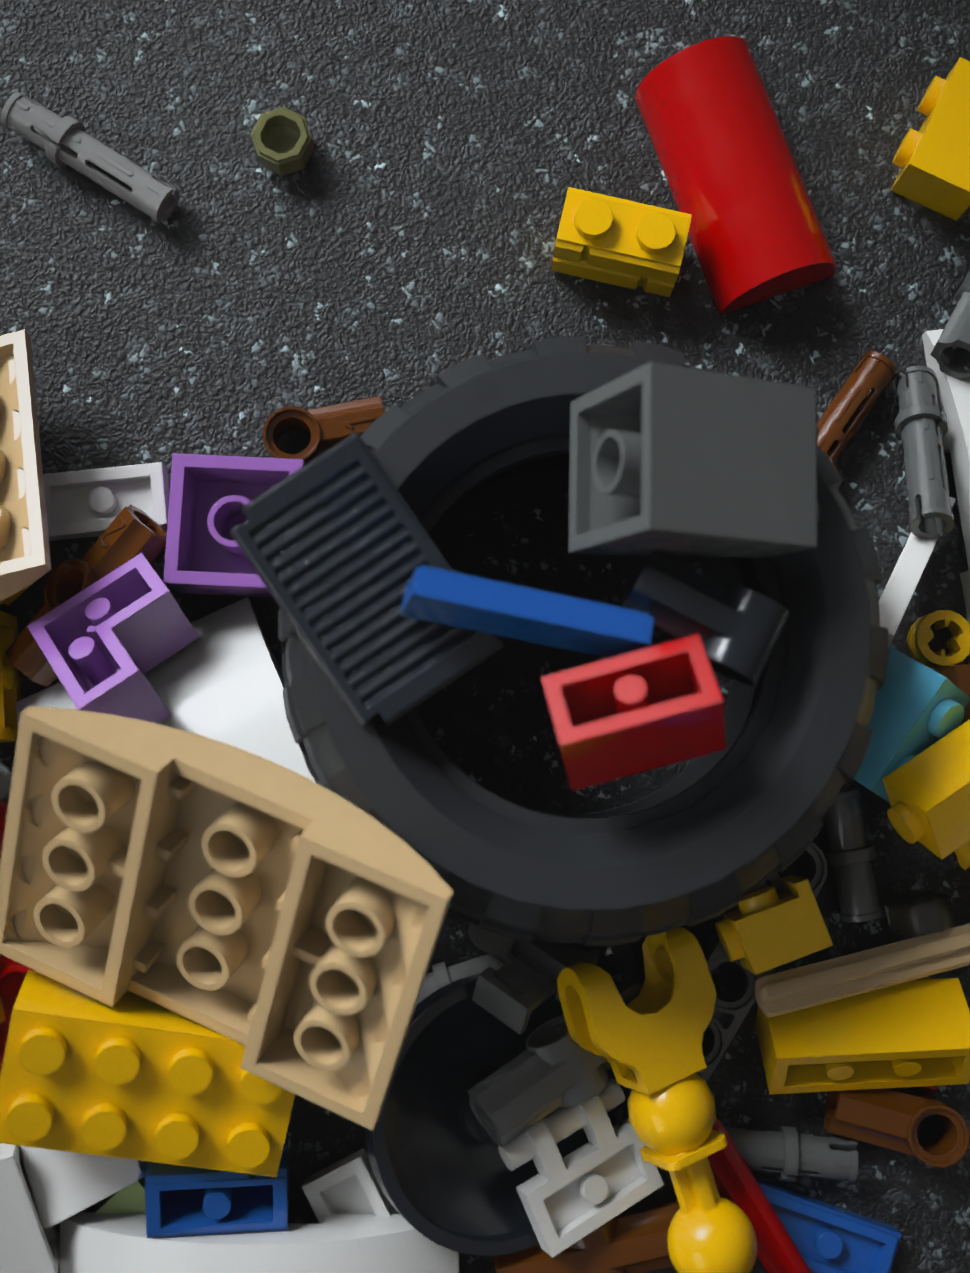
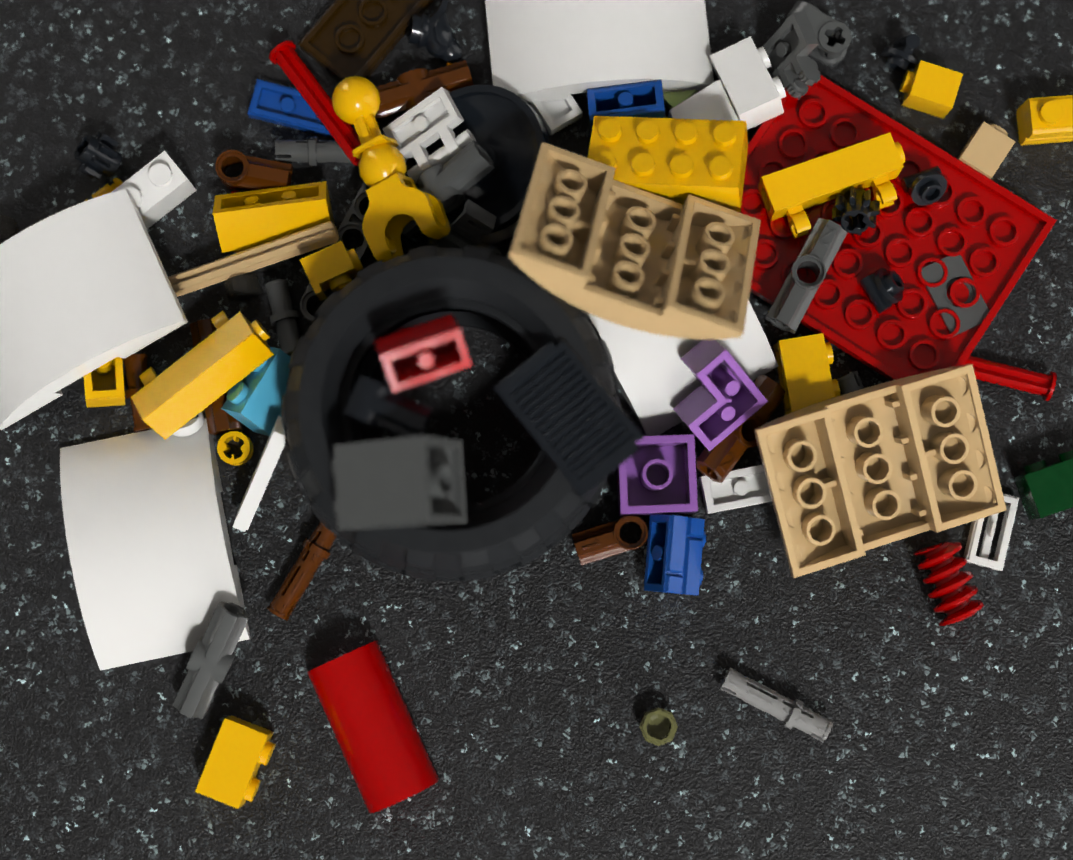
camera: 175 degrees right, 0 degrees up
(224, 392) = (674, 554): none -> blue brick
(524, 613) = (482, 400): blue tile -> none
(620, 242) = (442, 674): yellow brick -> none
(922, 433) = (253, 569): dark grey pin -> none

